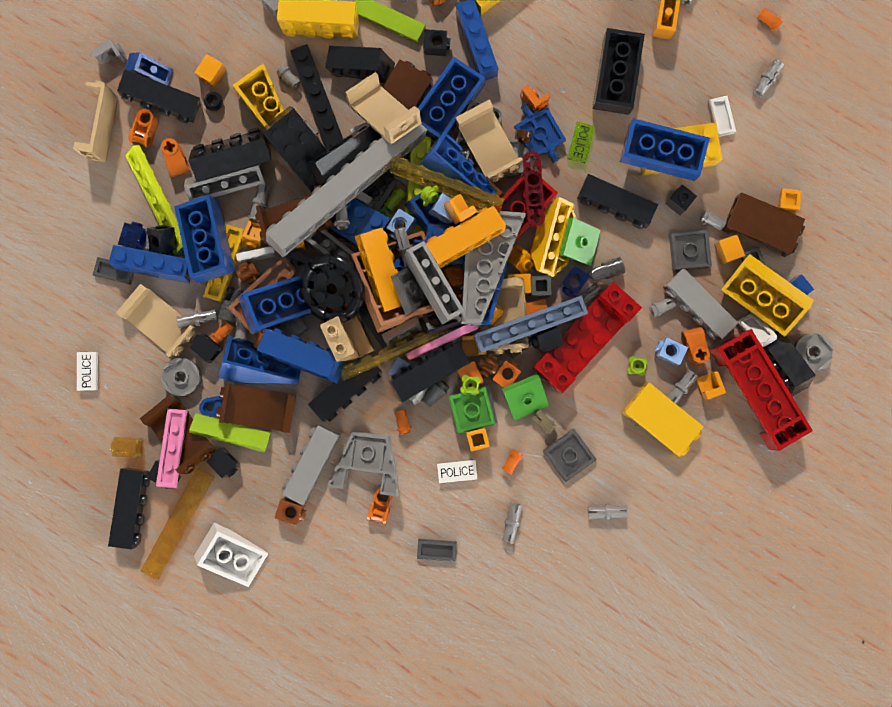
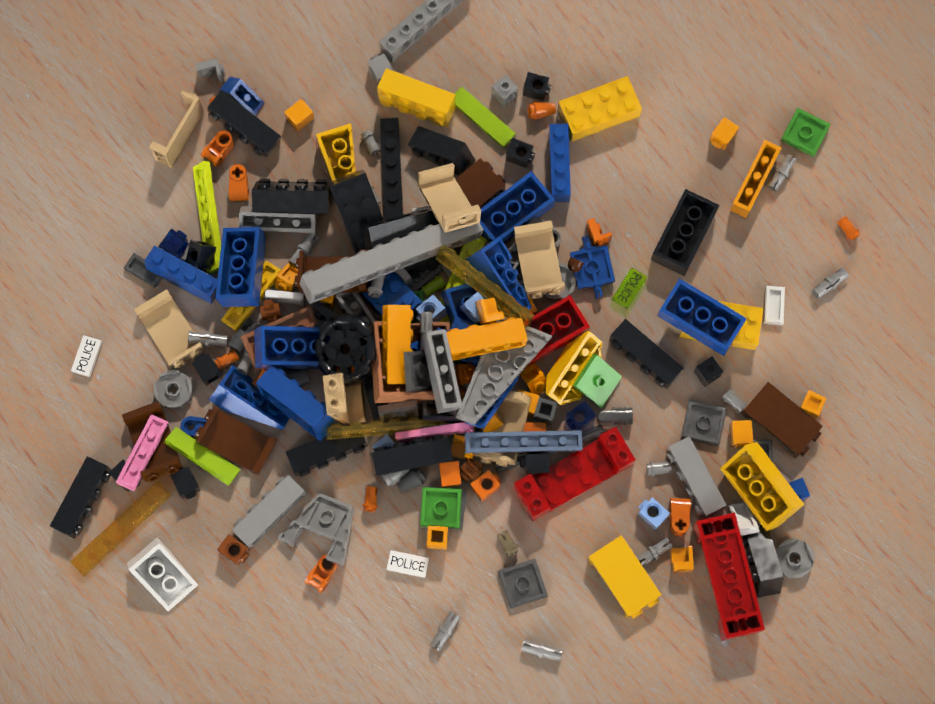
camera: 15 degrees right, 10 degrees down
(126, 447) = (99, 438): clear yellow brick -> none
(213, 96) = (292, 138): black plate -> none
(429, 194) = (465, 290): lime plate -> none
(436, 550) = (362, 634): dark grey tile -> none
(475, 384) = (452, 481): lime plate -> none
(512, 461) = (464, 571): orange pin -> none
(525, 397) = (497, 512): bright green plate -> none
(533, 189) = (566, 316): dark red beam -> none
(632, 366) = (614, 511): lime plate -> none

